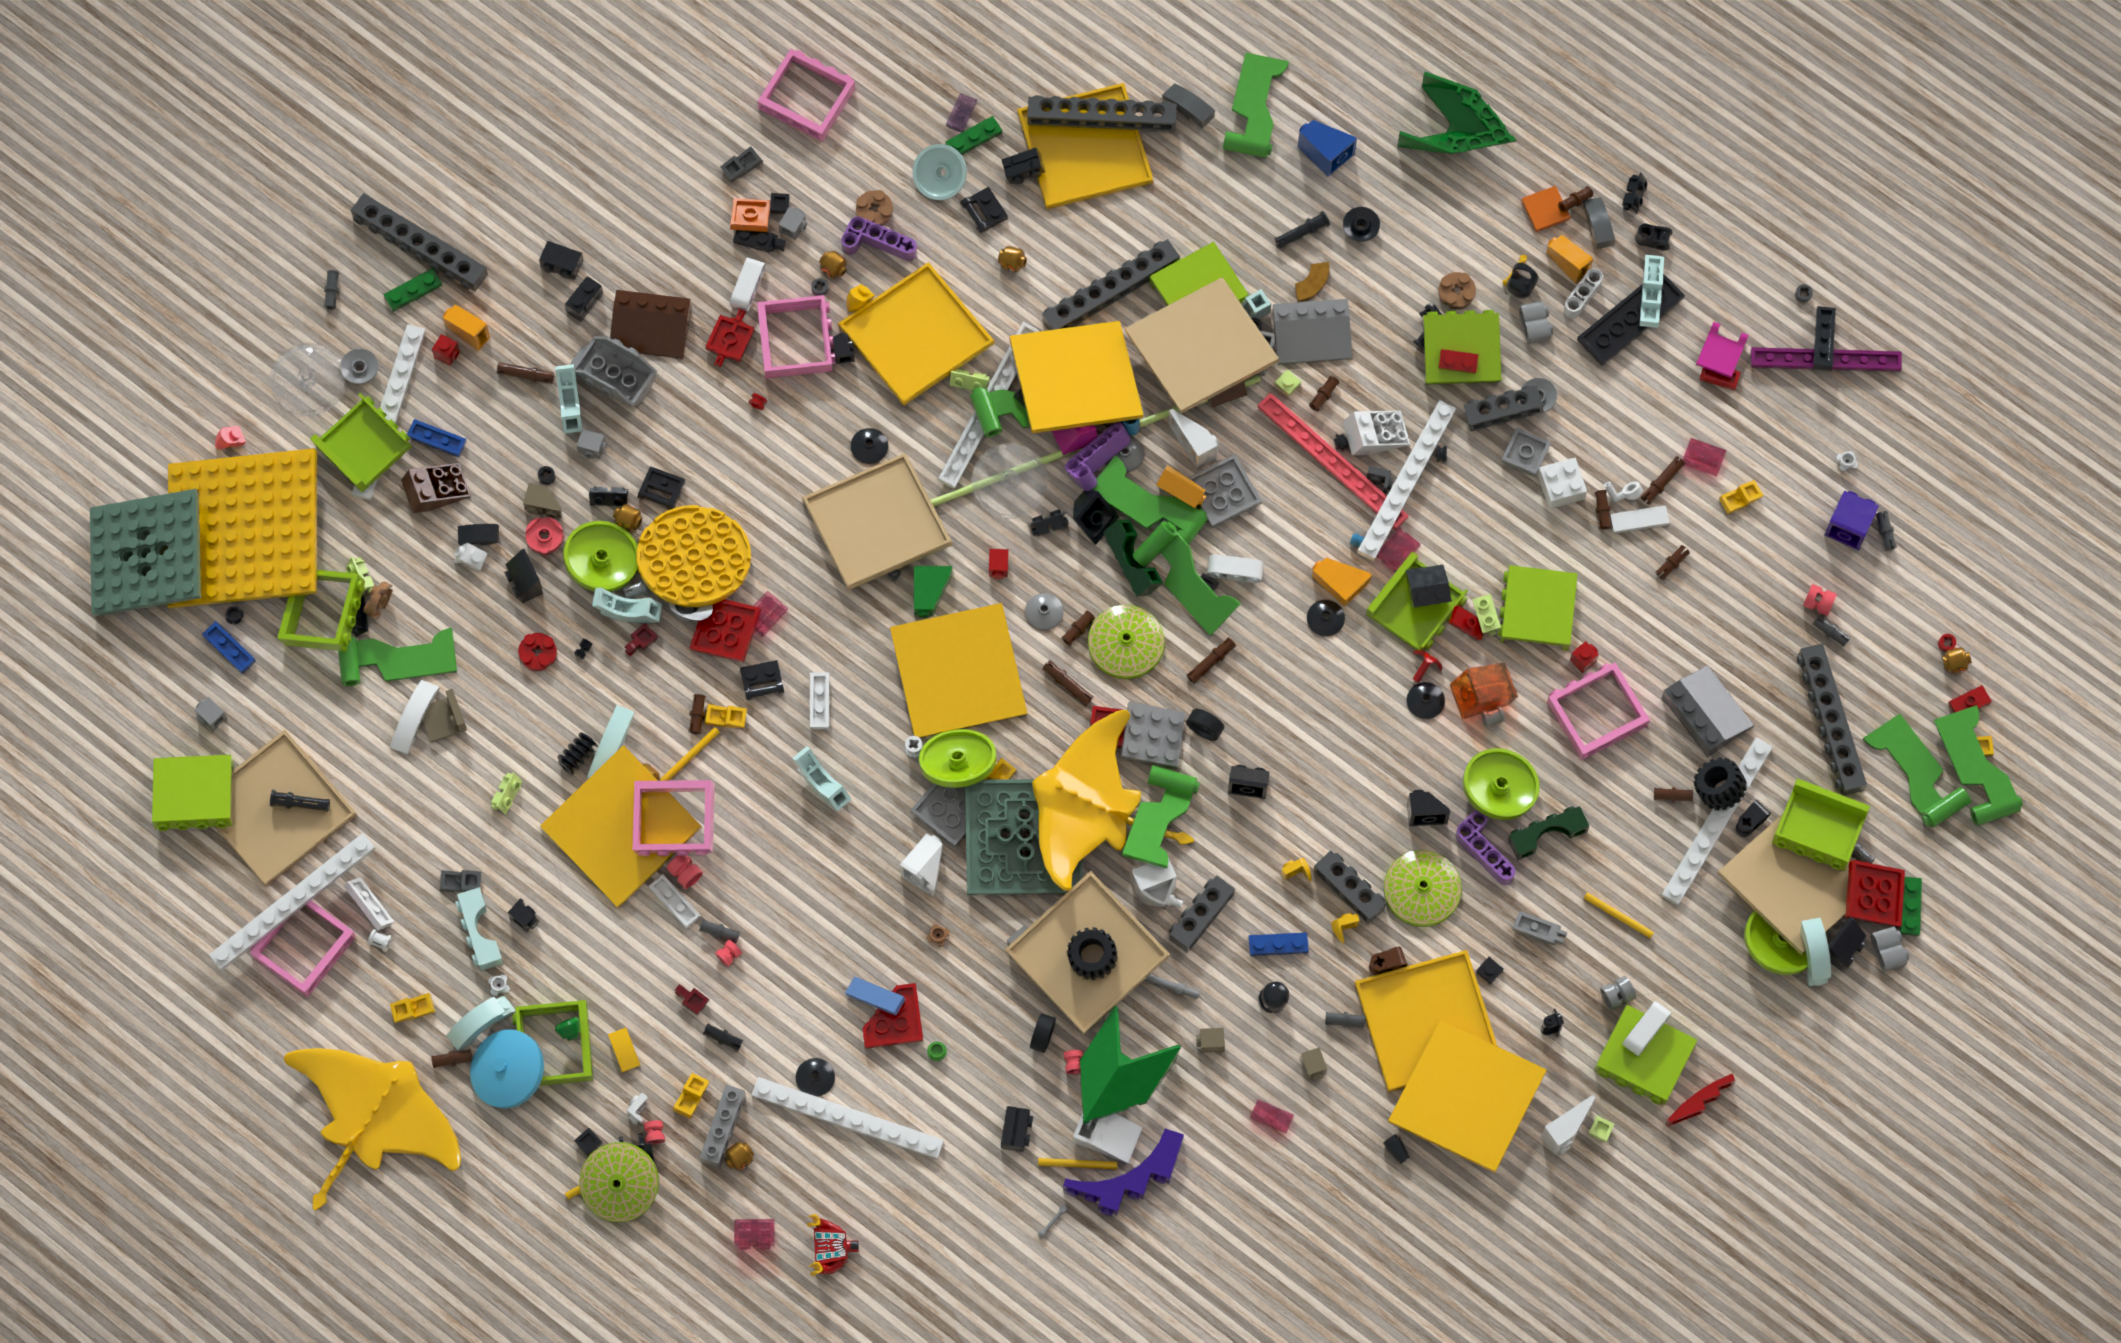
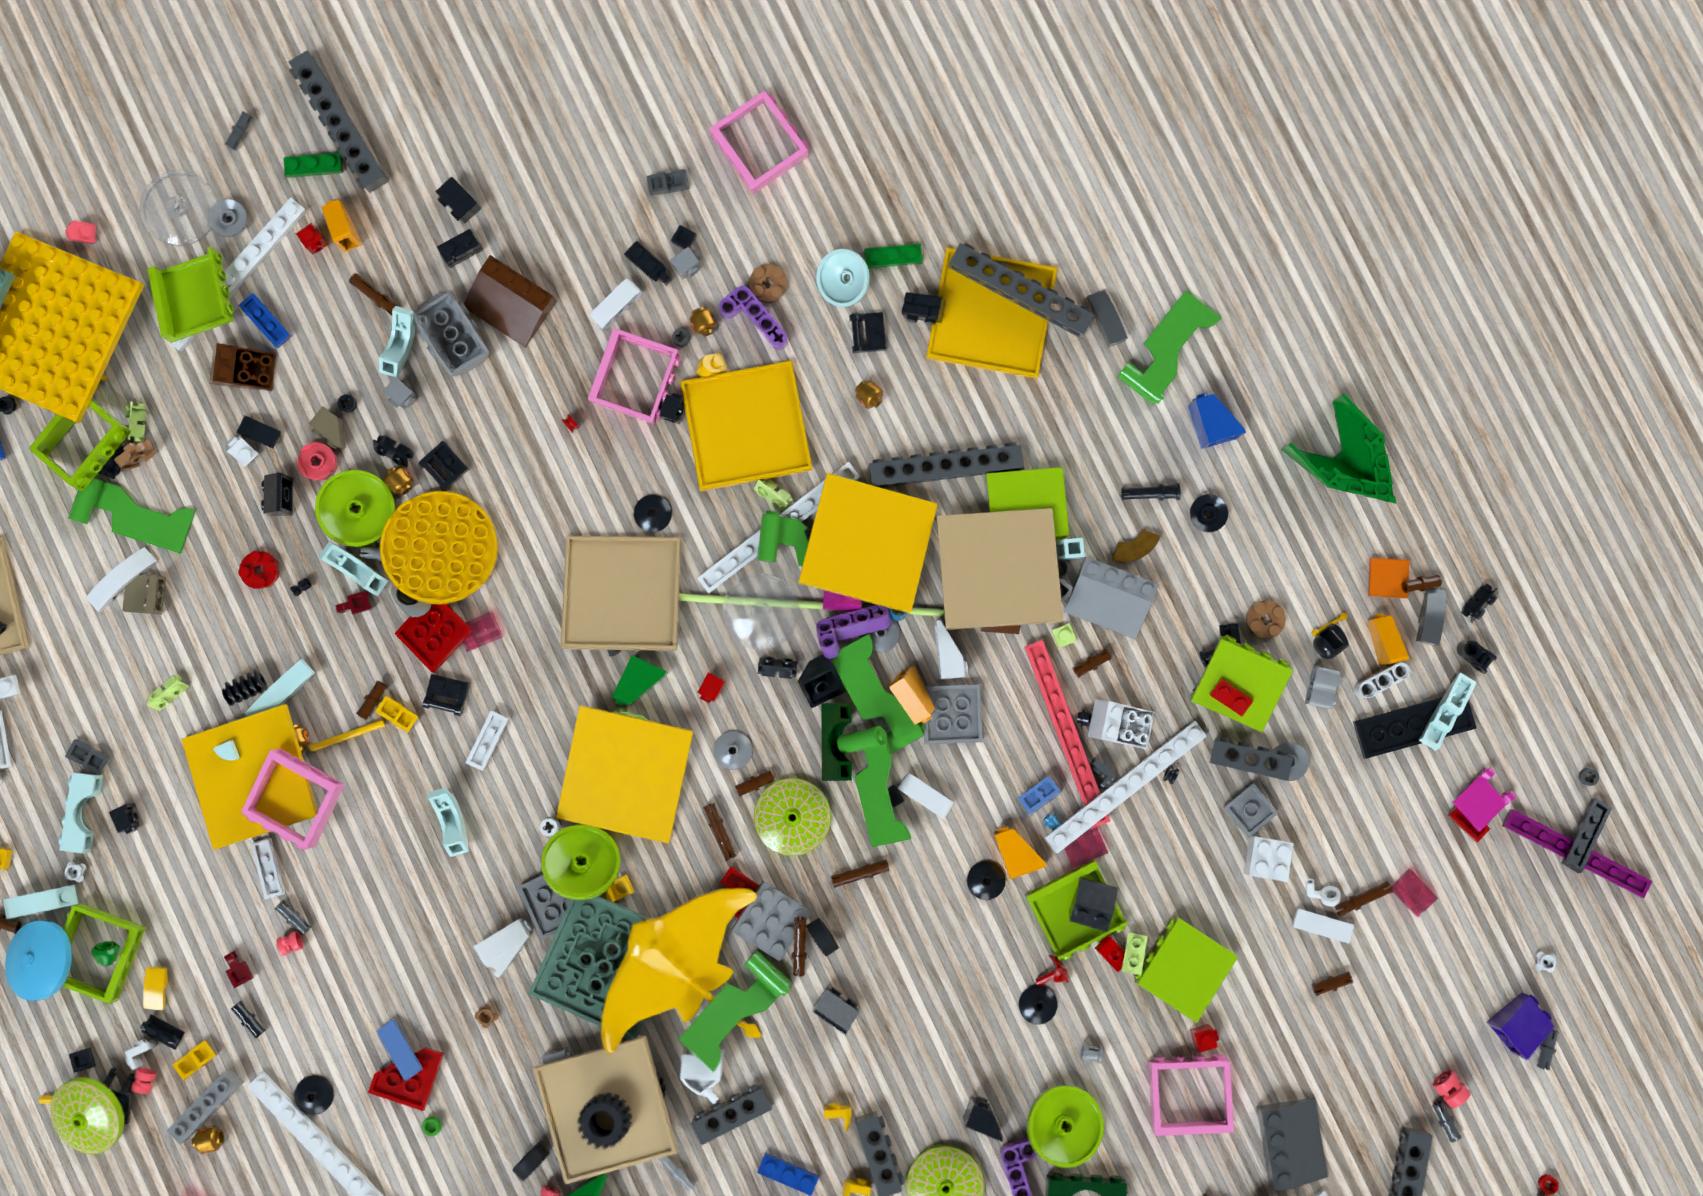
camera: 25 degrees right, 15 degrees up
(590, 811) = (227, 751): none -> light aqua tile
(649, 1085) = (162, 1031): none -> black hinge
(686, 873) = (286, 849): coral wheel -> none
(730, 338) = (575, 349): red plate -> none
(750, 215) = (650, 237): orange tile -> none
(961, 113) = (893, 227): clear purple plate -> none
(1188, 743) = (799, 954): none -> reddish brown pin
(1335, 522) = (1039, 795): none -> medium blue hinge
(1483, 689) = (1095, 1025): clear orange slope -> none
(1603, 509) = (1293, 900): reddish brown pin -> none
(1741, 497) = (1428, 949): yellow slope -> none

